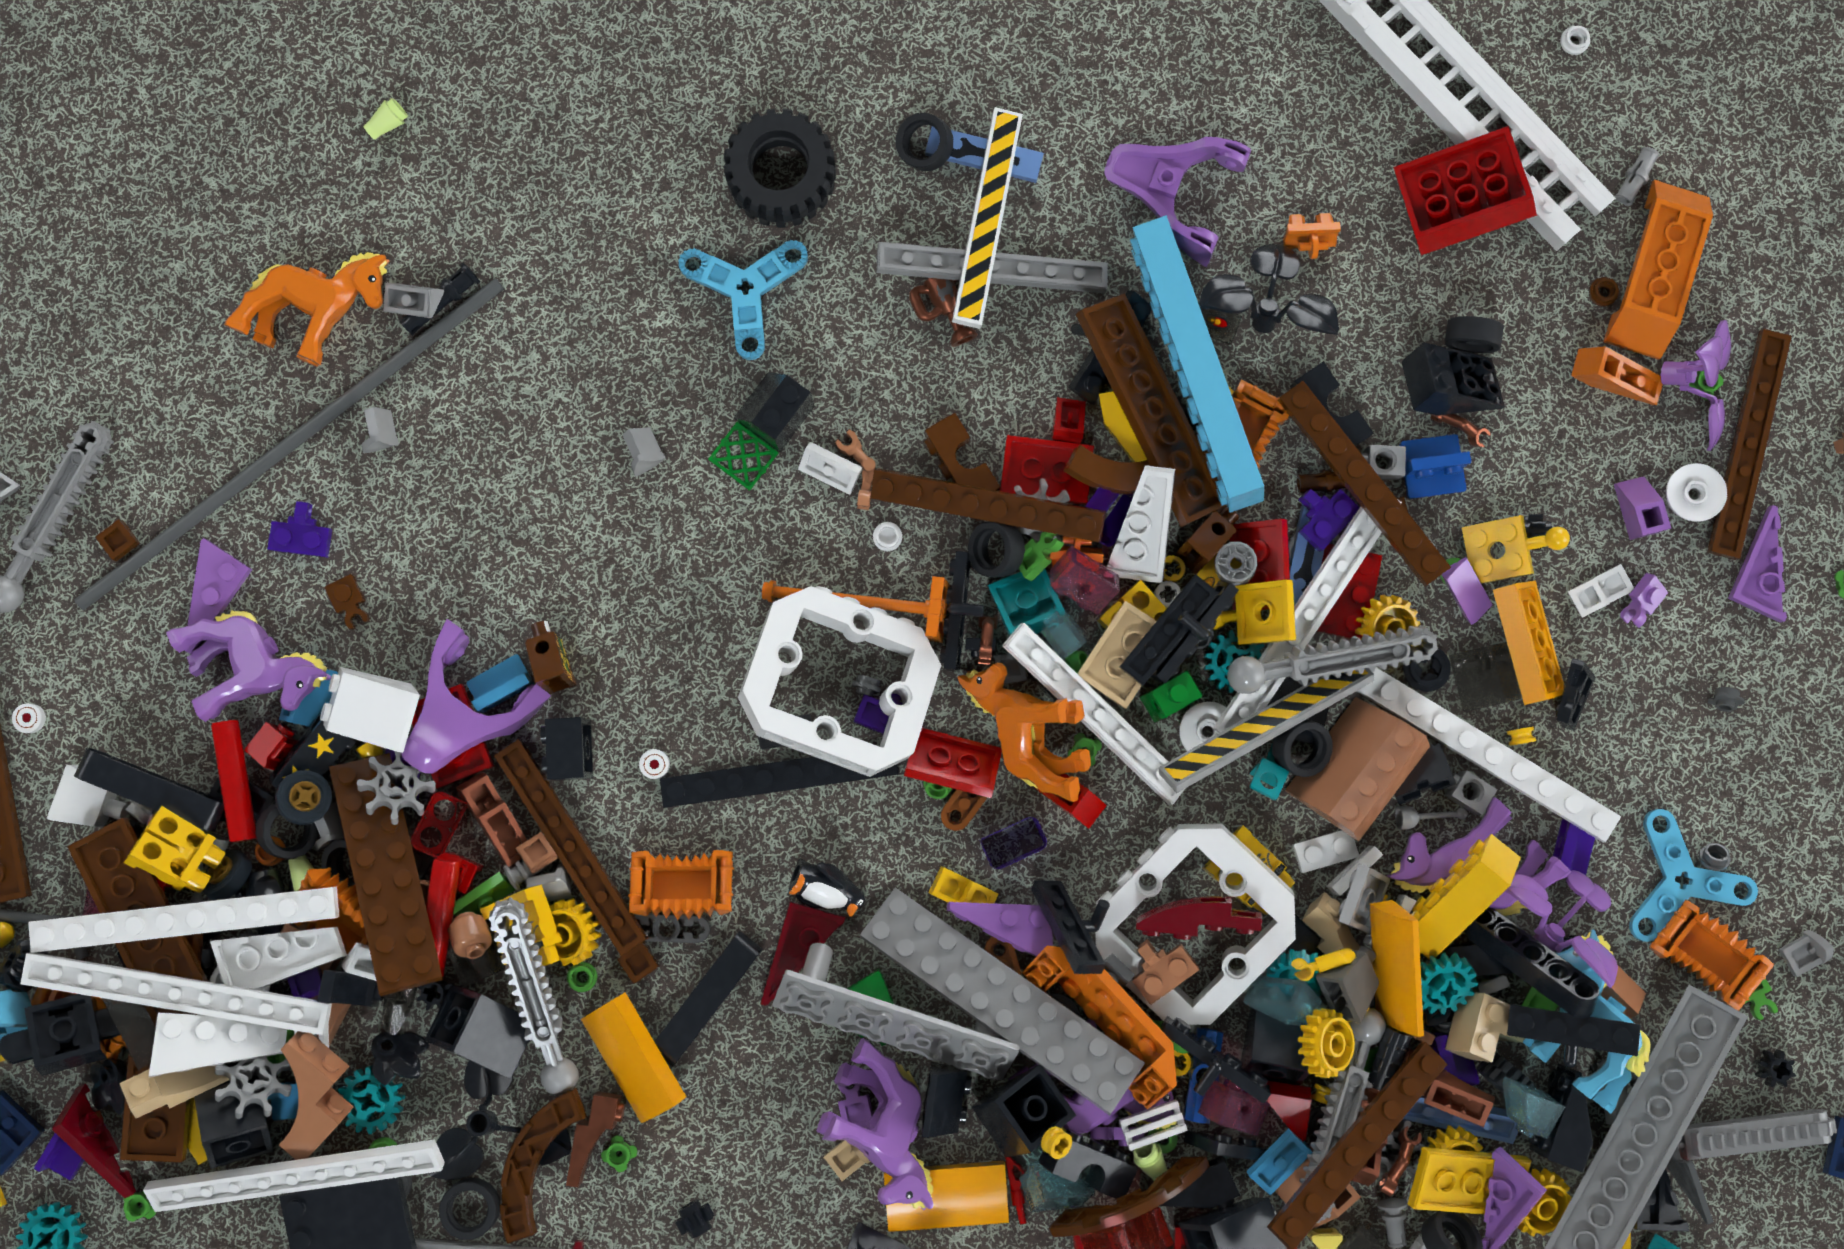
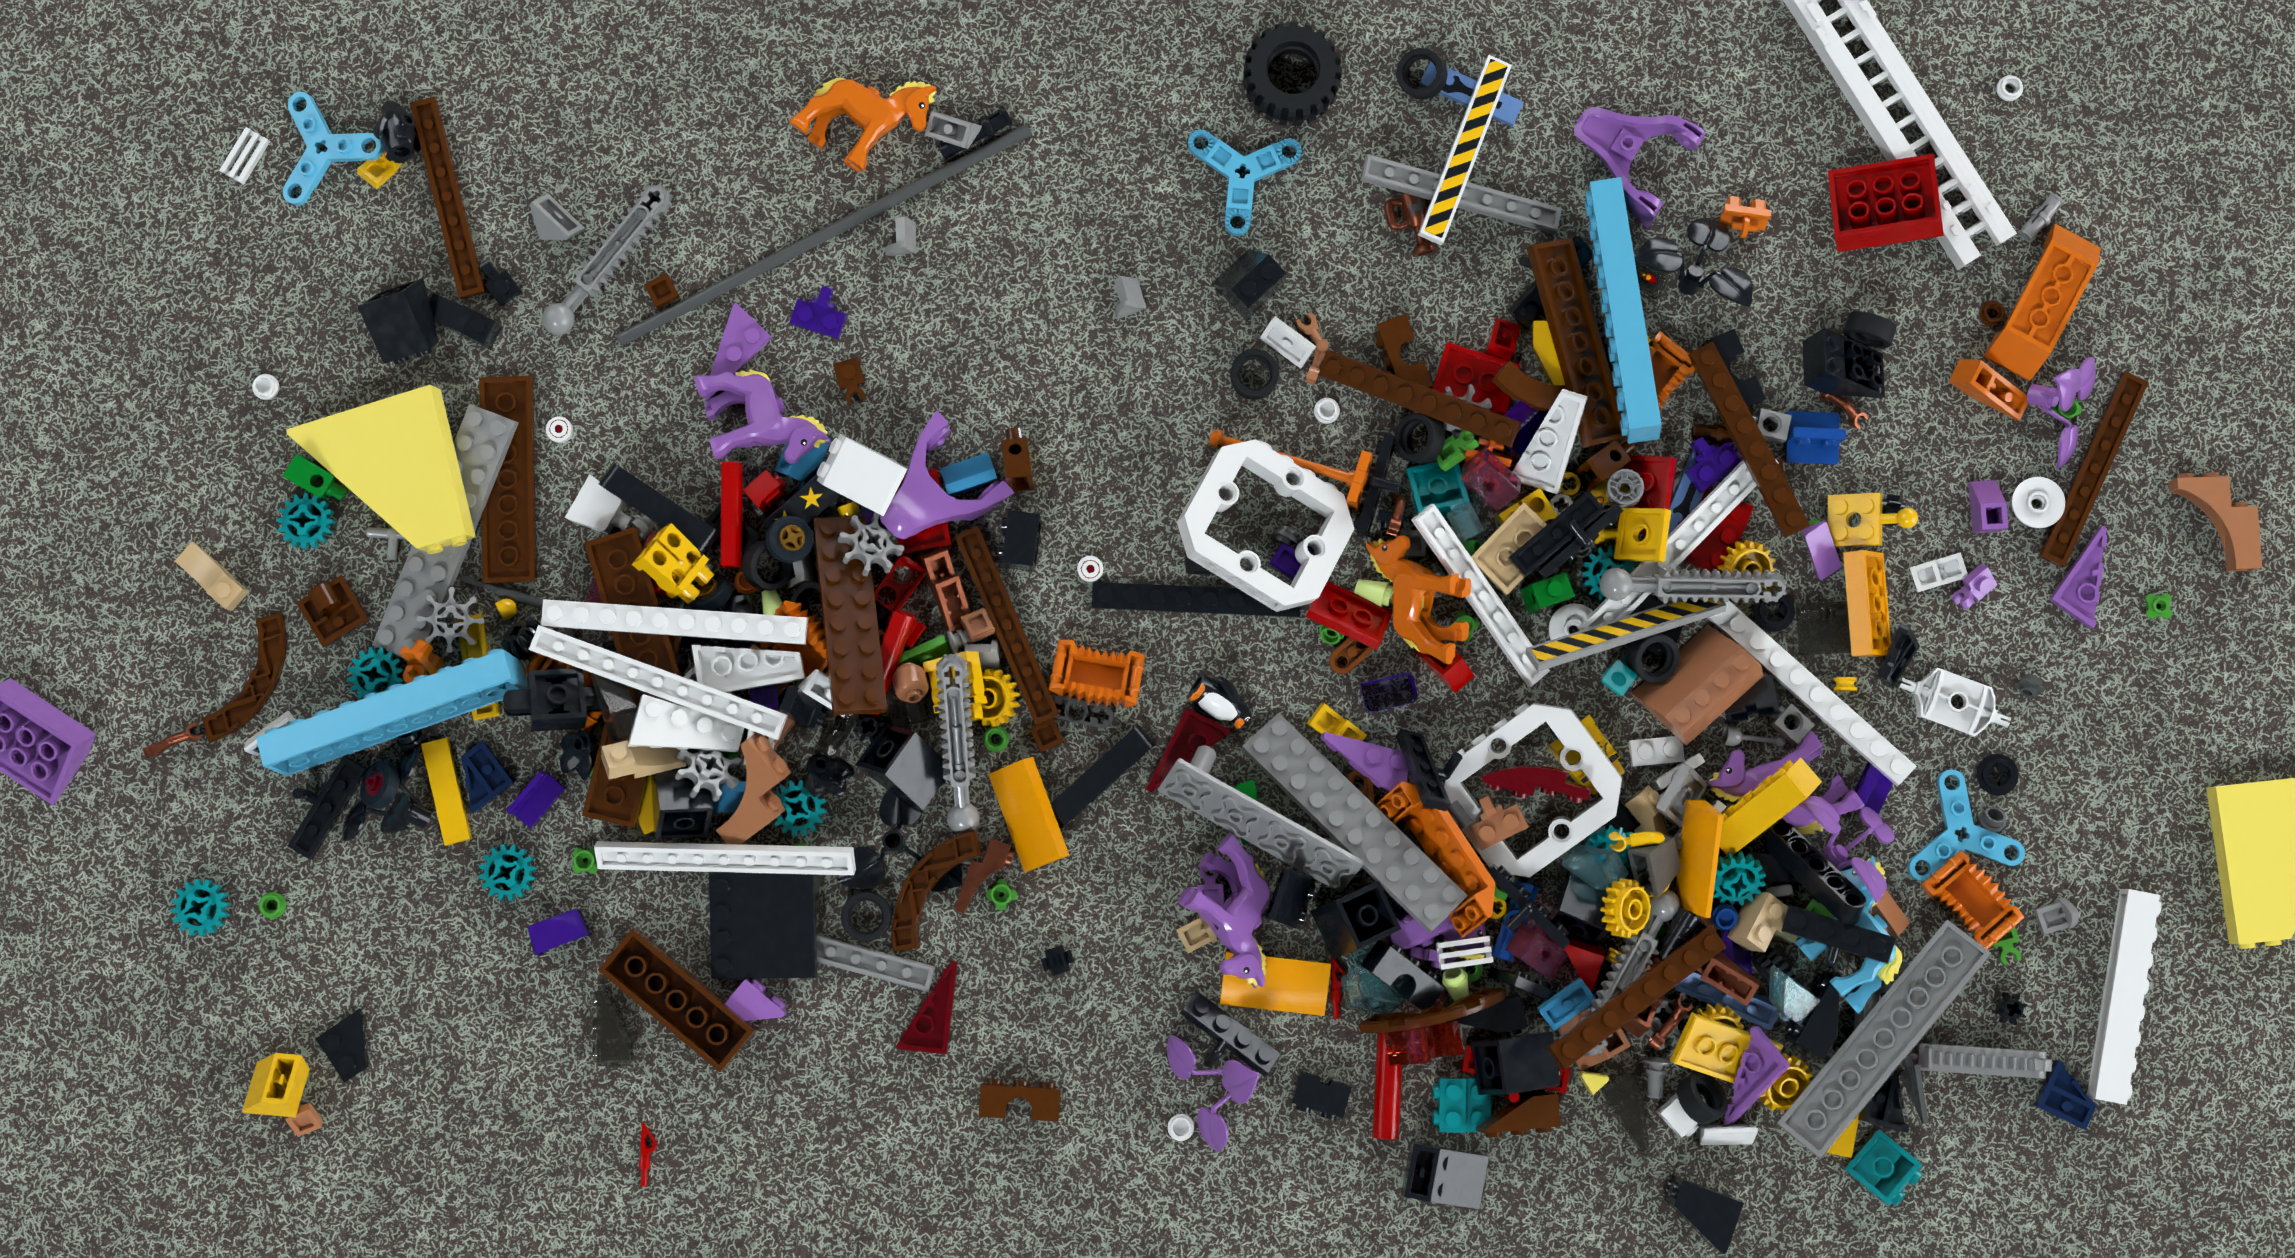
camera: 10 degrees right, 0 degrees up
(92, 1141) = (559, 797): dark red wing -> none
(725, 443) = (1200, 303): green window -> none
(793, 489) = (1266, 358): none -> black tyre
(978, 730) = (1375, 591): none -> yellowish green cone
(1056, 1142) = (1380, 946): yellow bush -> none
(1438, 1027) = (1724, 916): none -> blue plate
(1623, 732) = (1934, 701): none -> white plate
(1720, 813) = (2004, 765): none -> black gear

